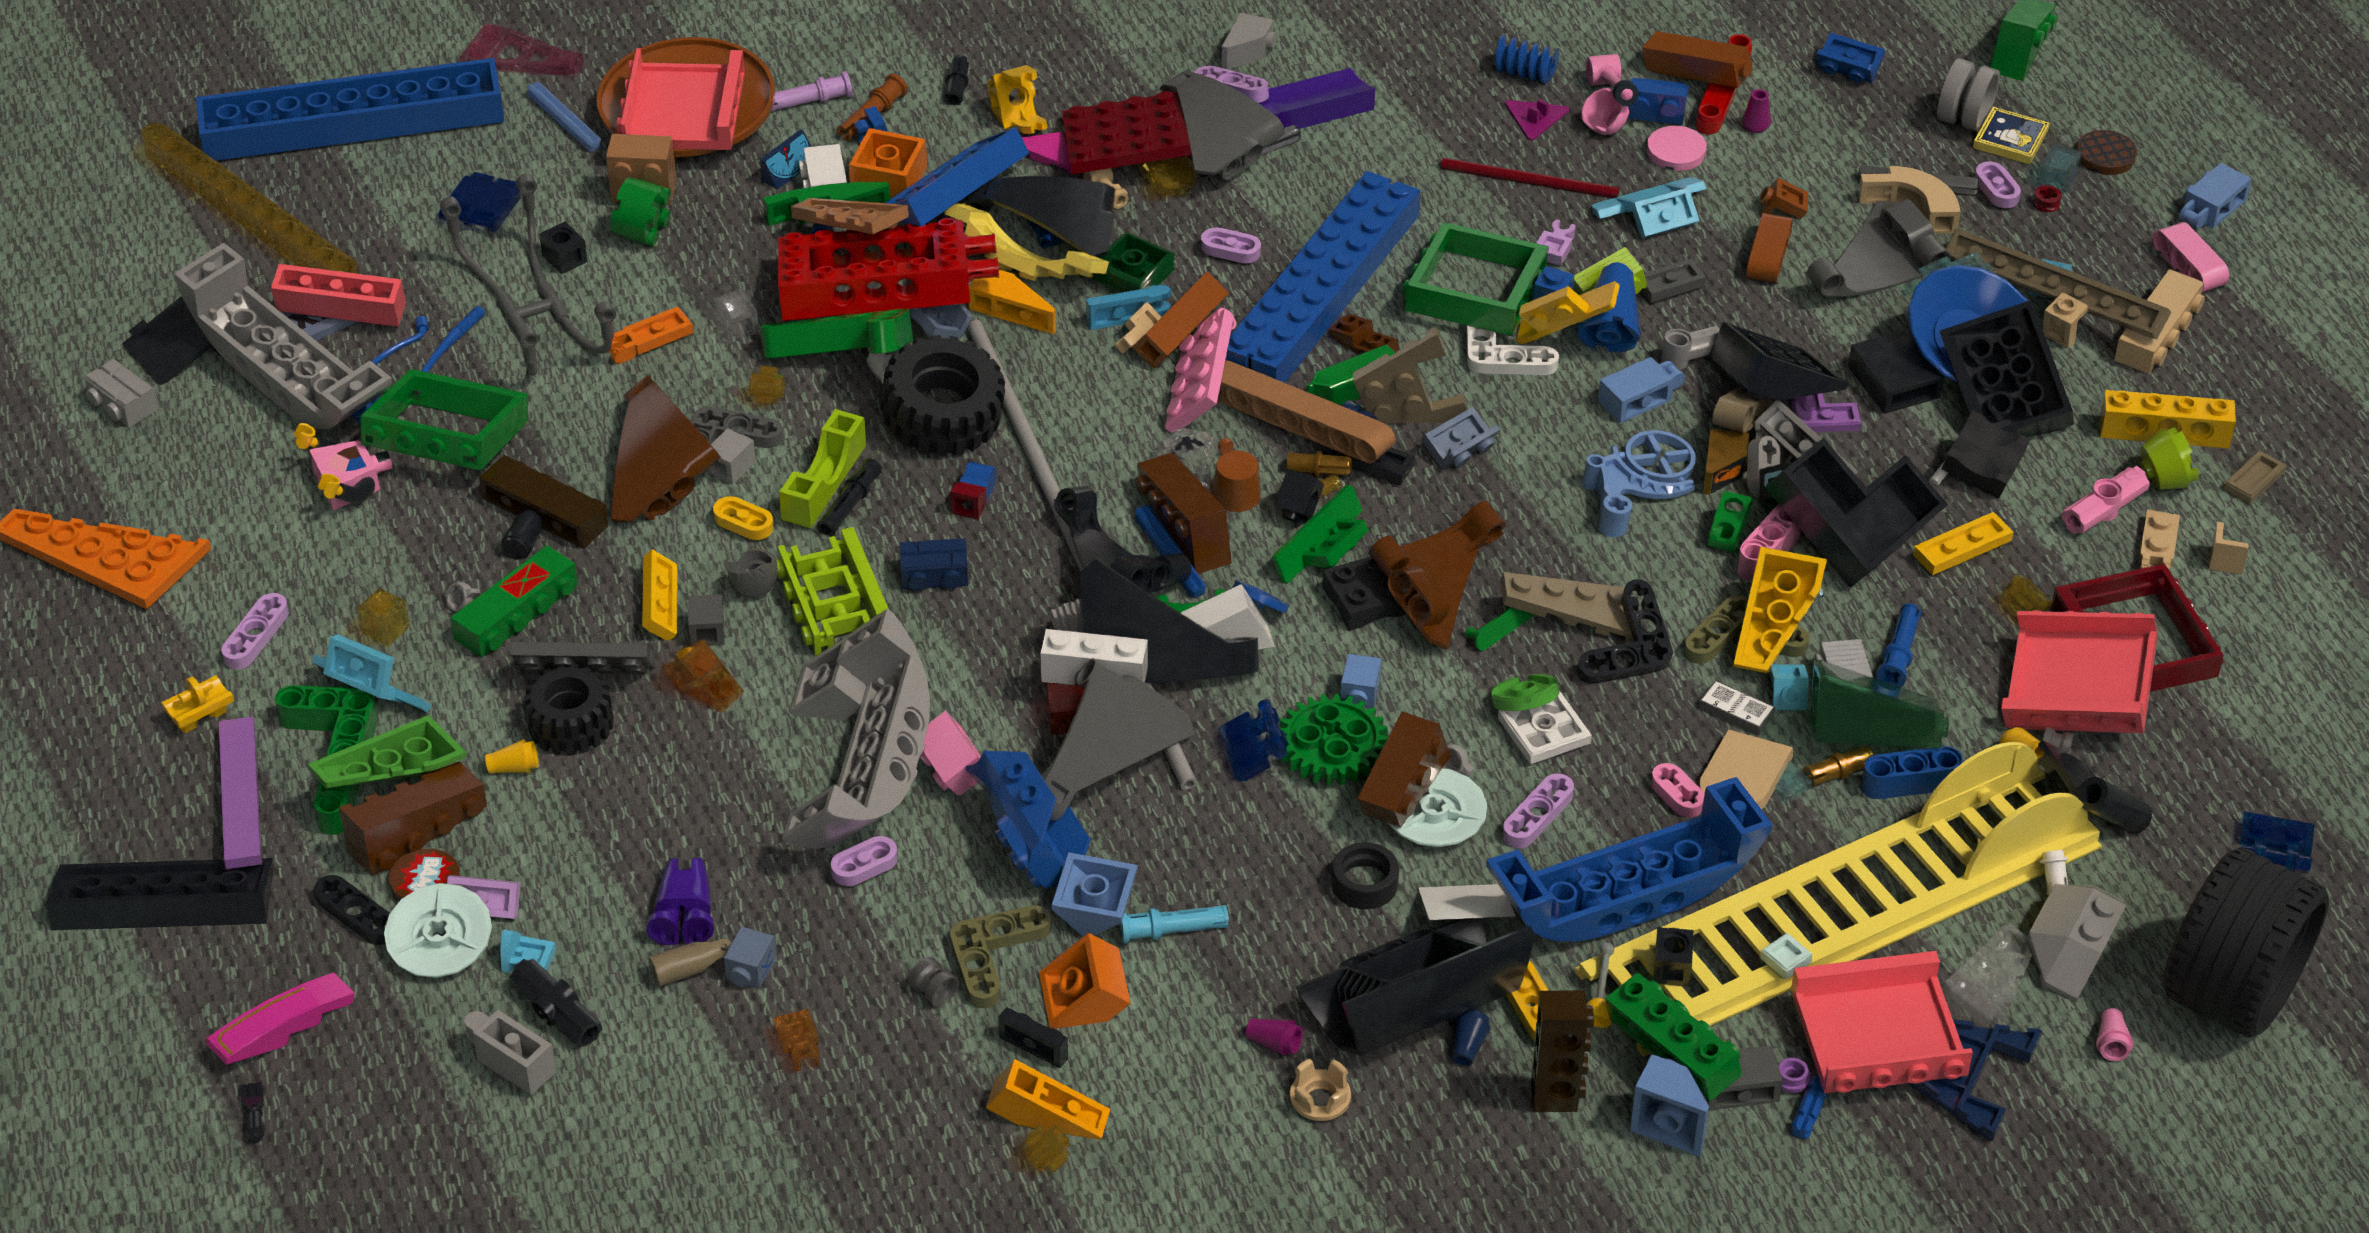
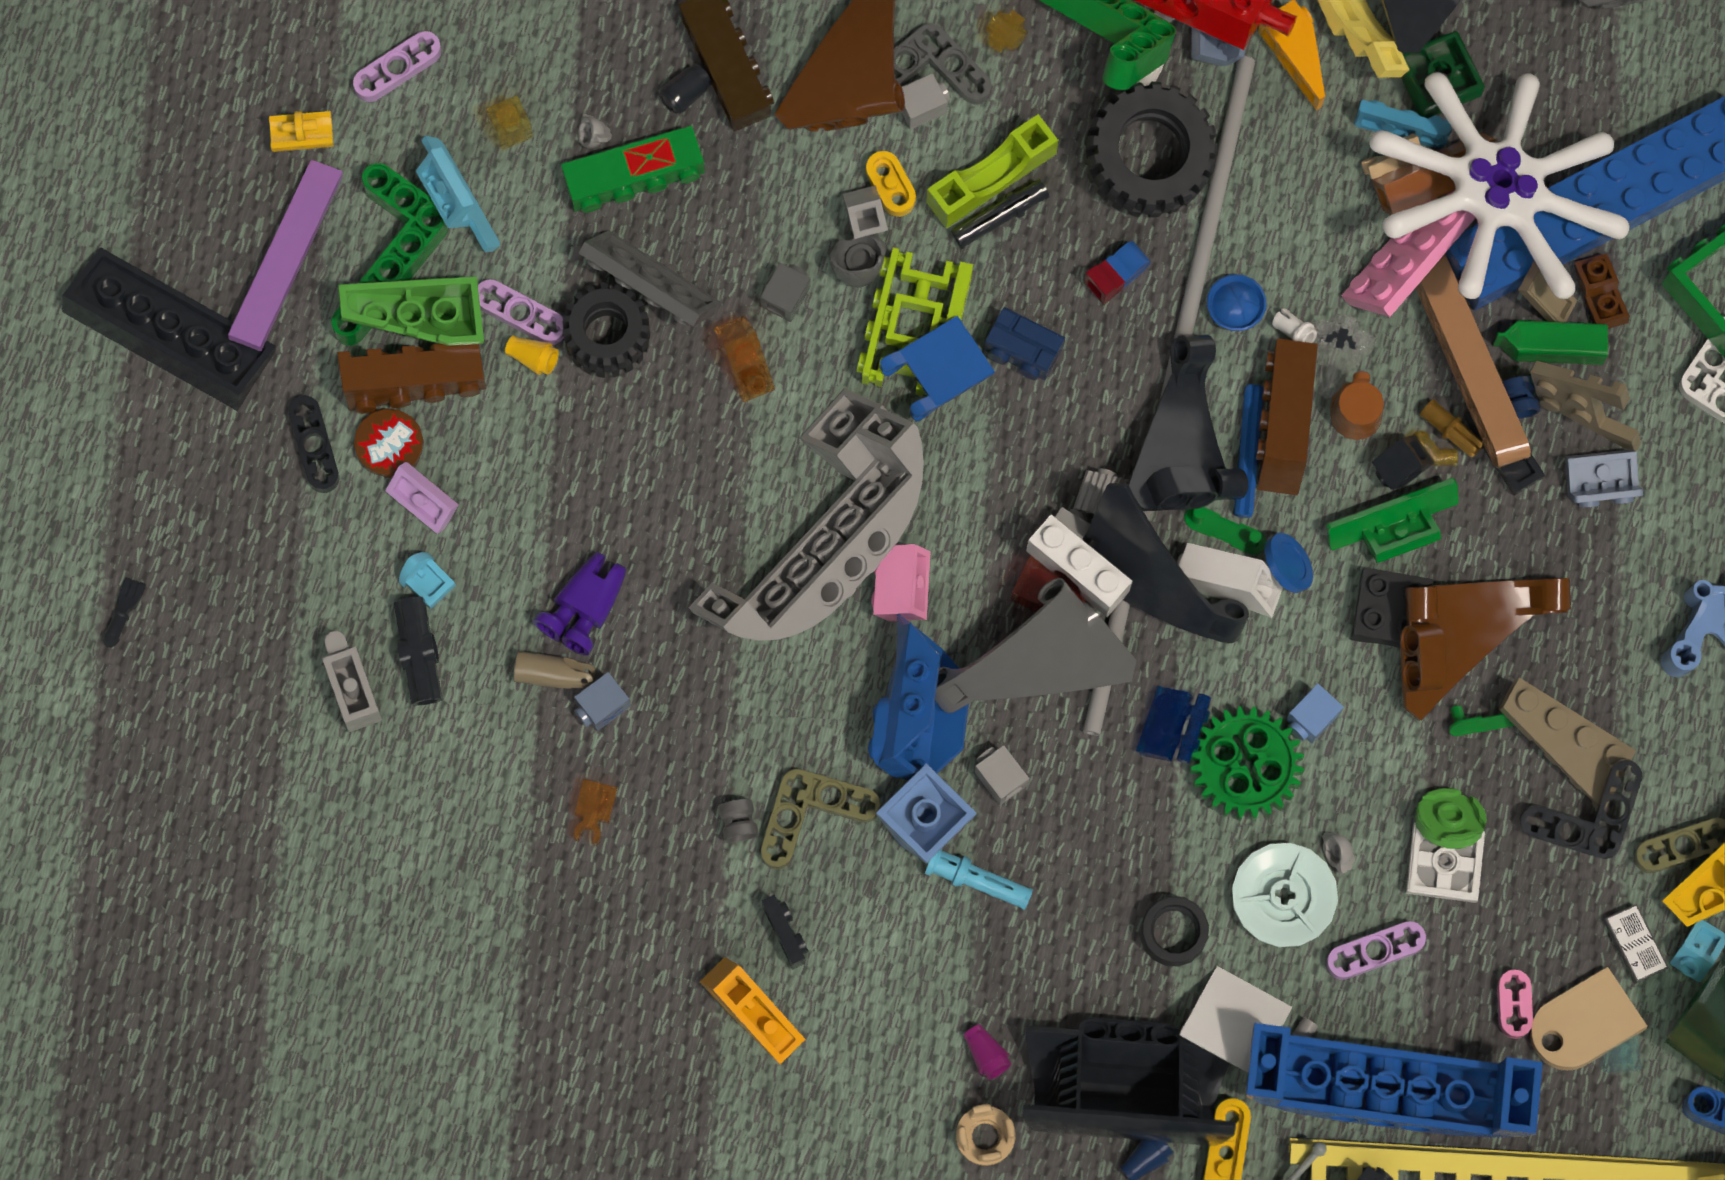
camera: 30 degrees right, 30 degrees up
(274, 1020) = (189, 531): dark pink slope -> none
(440, 910) = (341, 504): light aqua piece -> none
(490, 729) = (502, 292): none -> lavender beam
(659, 595) = (763, 236): yellow plate -> none
(736, 537) = (865, 212): none -> light grey brick
(861, 861) = (760, 653): lavender plate -> none
(872, 592) = (943, 363): none -> blue flag
(1047, 1147) = (723, 1054): clear yellow gear -> none
(1084, 984) = (860, 903): orange slope -> none
(1086, 466) = (1236, 302): none -> blue hat
(1131, 458) = (1294, 327): none -> white pin
(1136, 841) = (1000, 774): none -> light grey brick
(1230, 245) = (1556, 97): lavender plate -> none
(1235, 285) = (1519, 190): none -> white animal
(1322, 345) = (1539, 294): none -> dark tan tile
(1404, 769) = (1271, 854): reddish brown wedge -> none
(1838, 765) = (1673, 1066): pearl gold pin -> none

